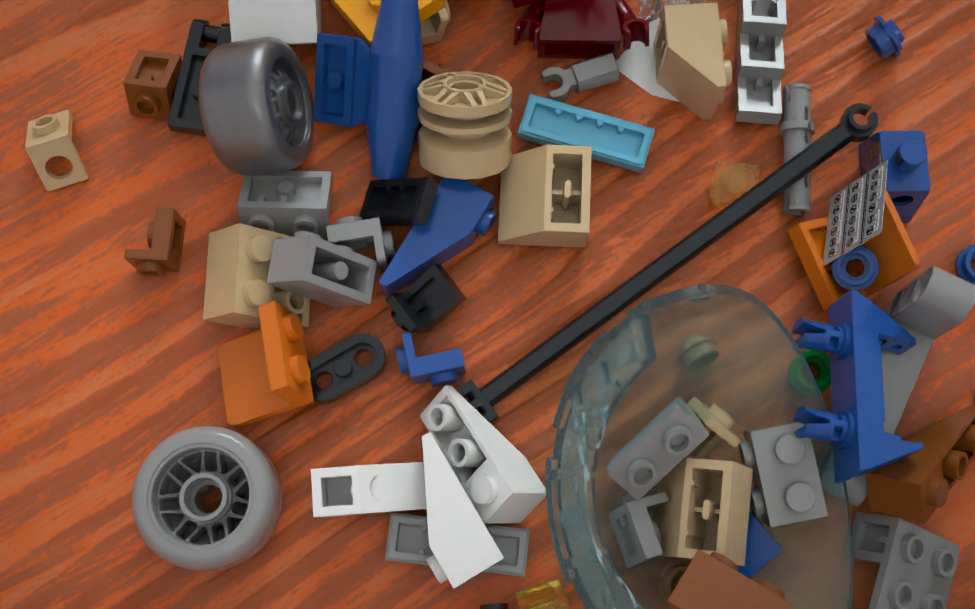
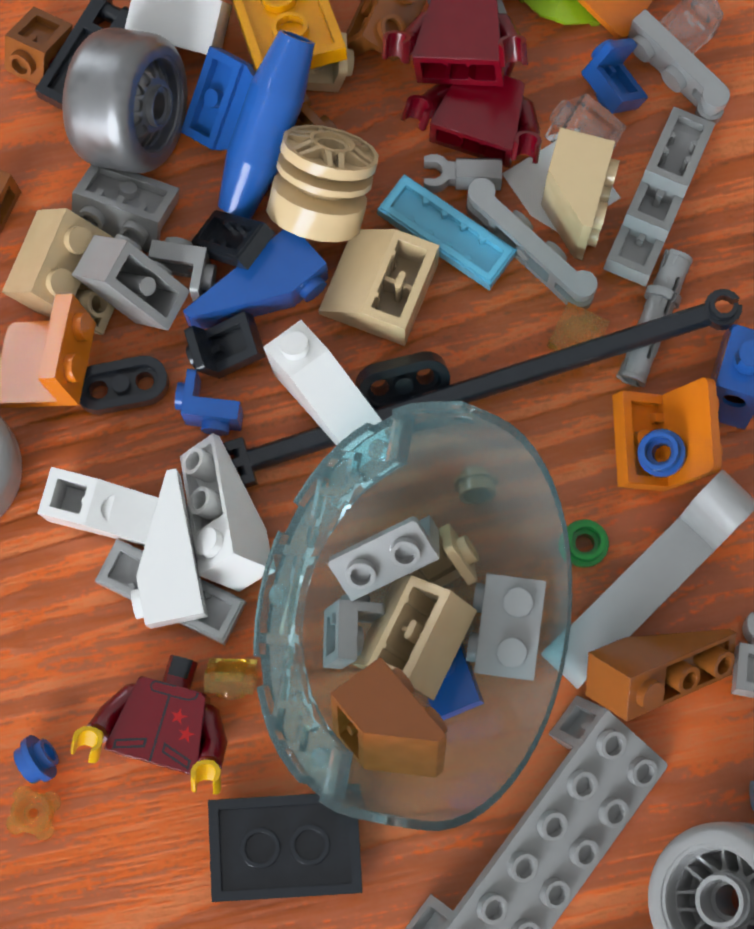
camera: 20 degrees right, 0 degrees up
(532, 310) = (318, 382): none -> white slope
(595, 278) = (402, 378): none -> black plate
(675, 128) = (542, 259): none -> light grey plate
(854, 341) = (624, 523): blue hose -> none
(855, 213) = (678, 398): light grey sticker -> none

